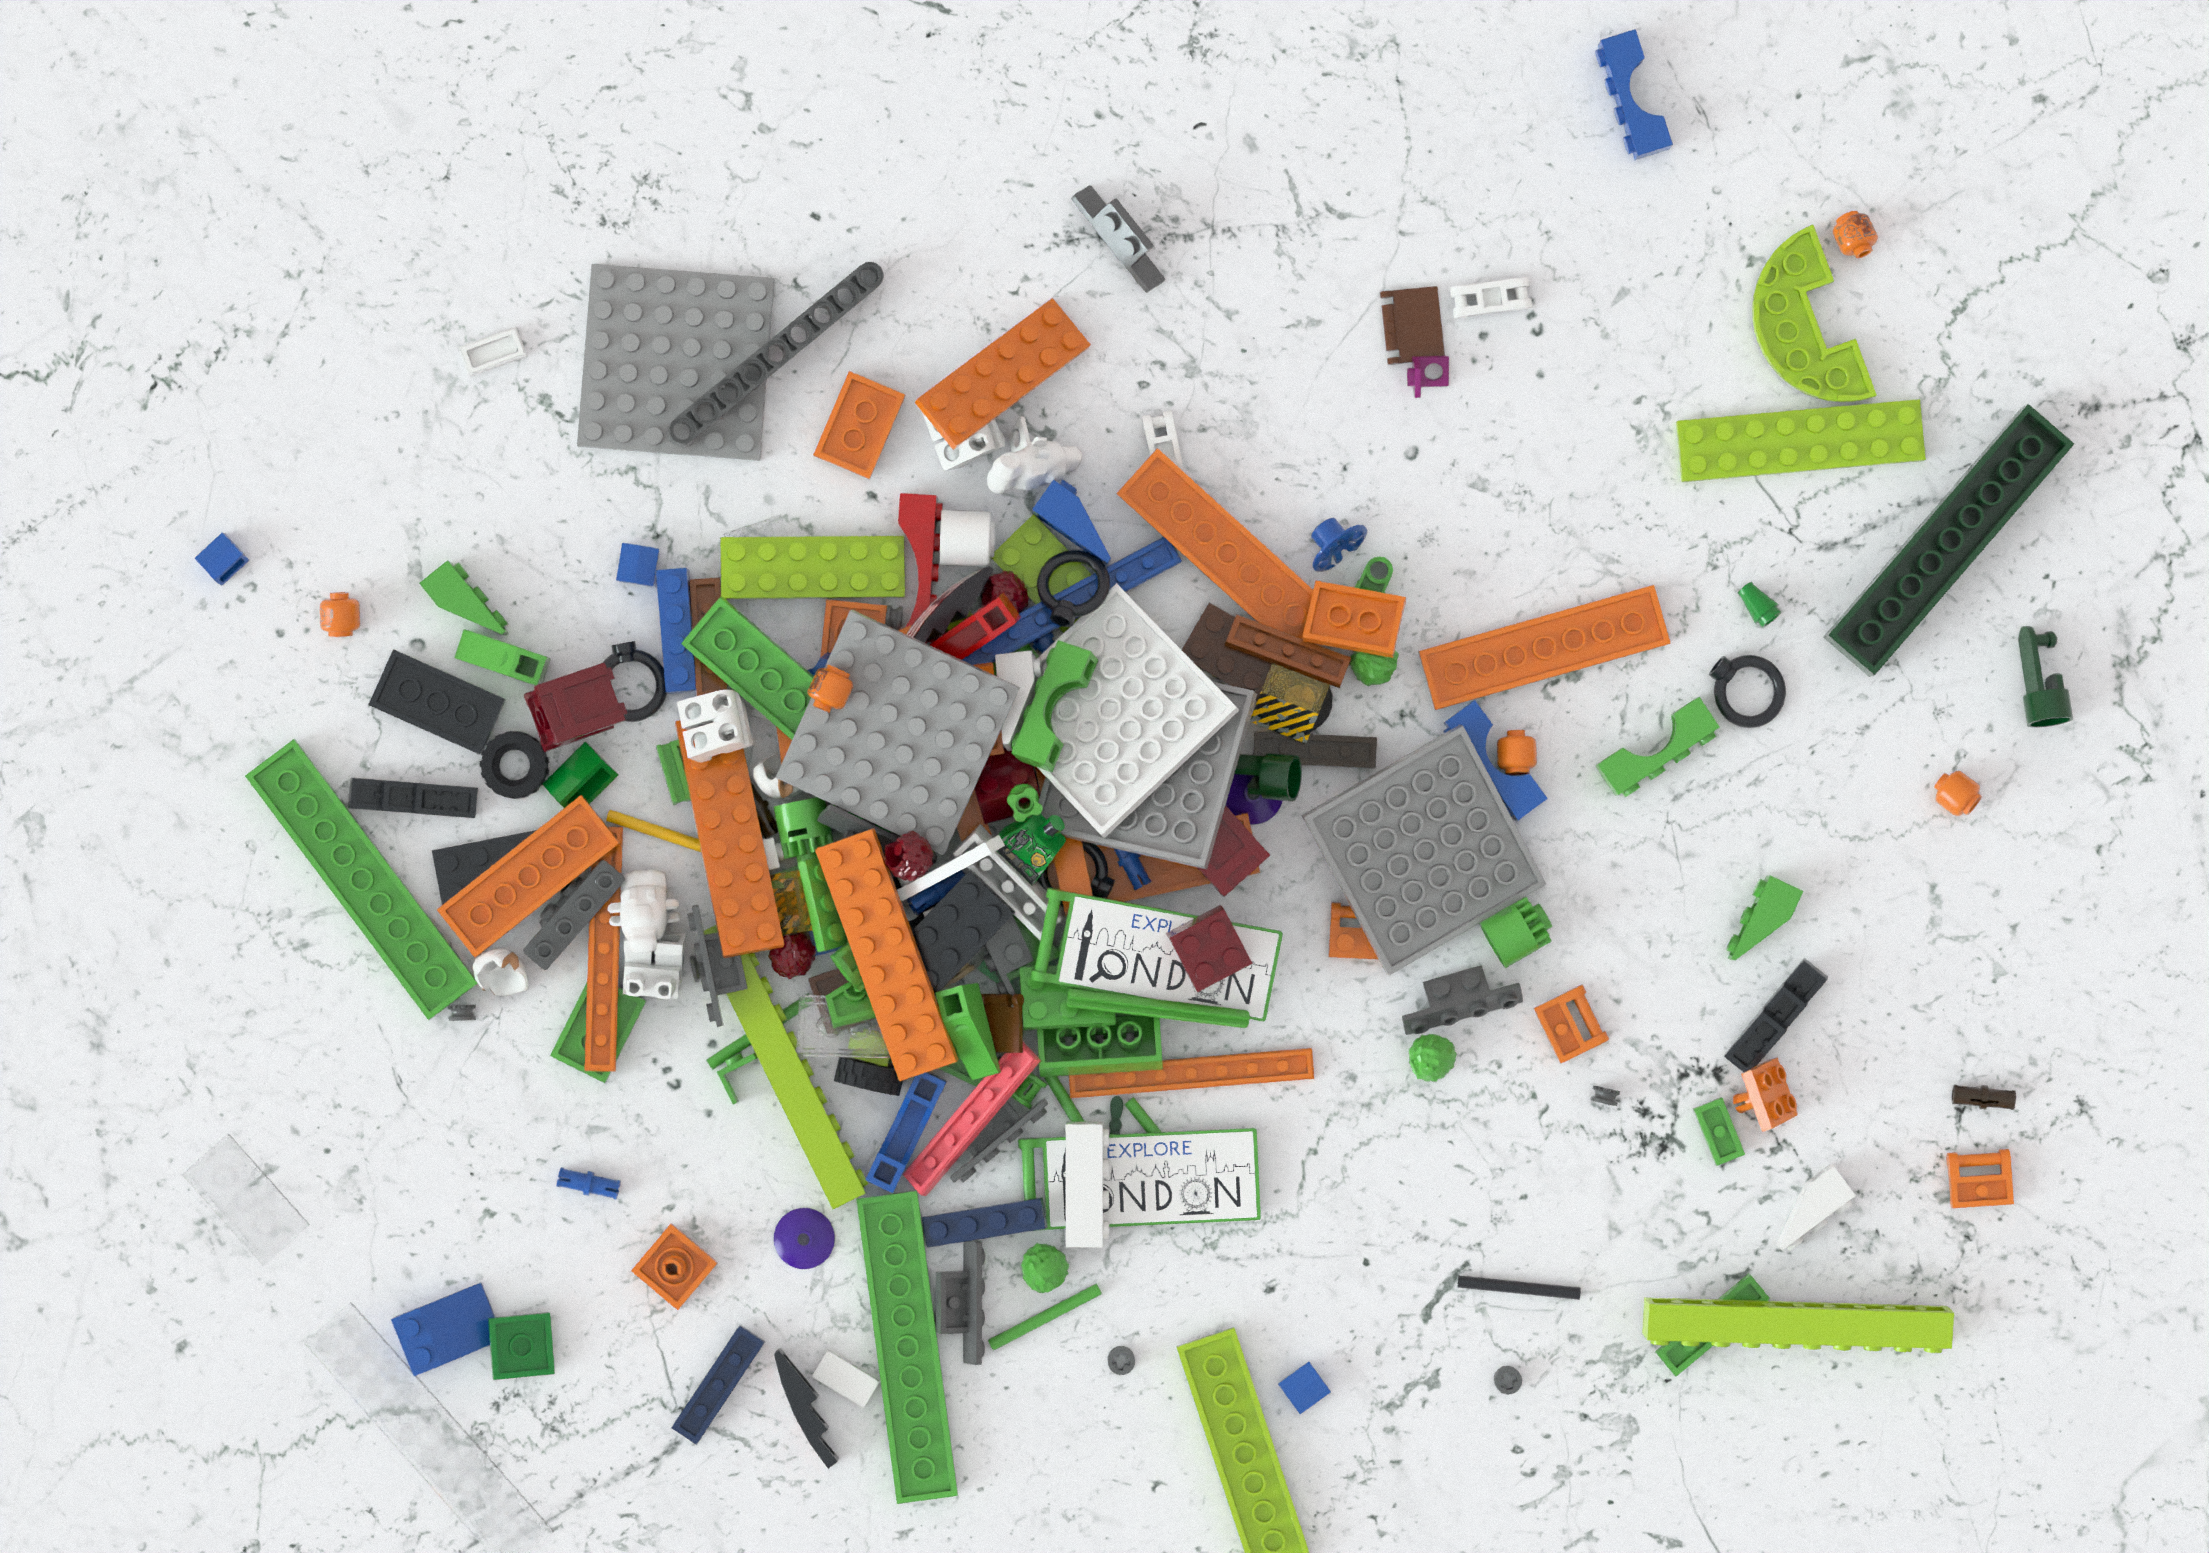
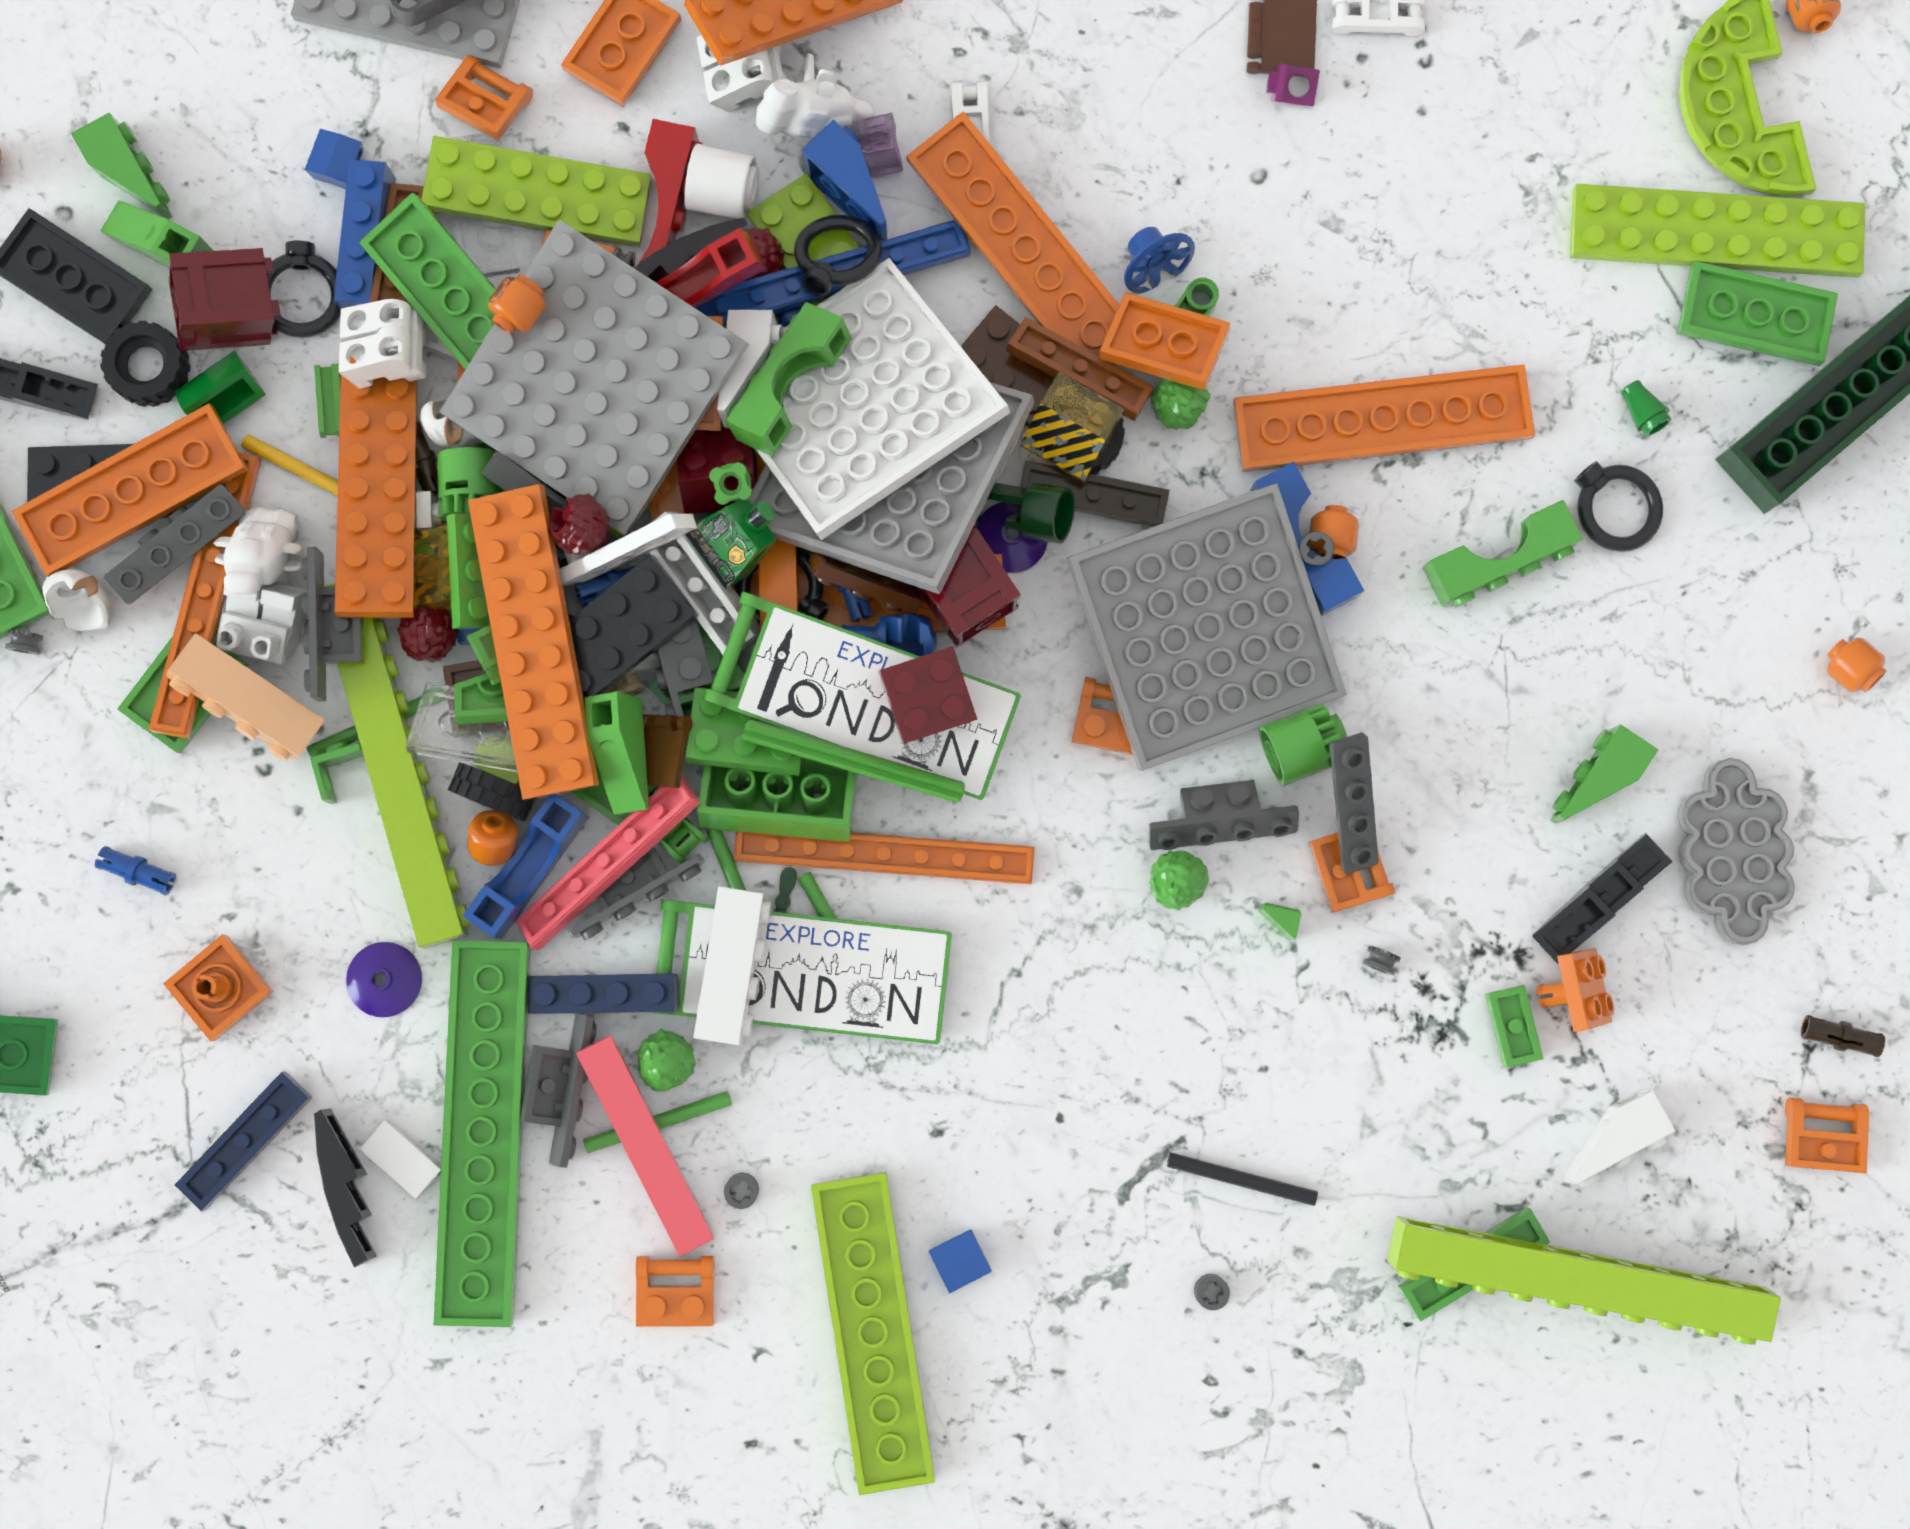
camera: 10 degrees right, 5 degrees down
(656, 1032) = (243, 697): none -> light nougat brick
(750, 501) = (479, 106): none -> orange plate
(874, 1112) = (492, 837): none -> orange head
(1040, 1337) = (645, 1145): none -> coral tile
(1082, 1457) = (675, 1303): none -> orange plate
(1092, 488) = (879, 145): none -> clear purple plate
(1118, 859) = (865, 583): none -> reddish brown plate
(1176, 894) = (903, 631): none -> blue piece
(1500, 764) = (1305, 550): none -> dark grey bush
(1522, 1074) = (1282, 918): none -> bright green slope
(1562, 977) = (1354, 802): none -> dark grey bracket
(1841, 508) = (1757, 313): none -> bright green plate
(1879, 961) = (1736, 851): none -> light grey plate

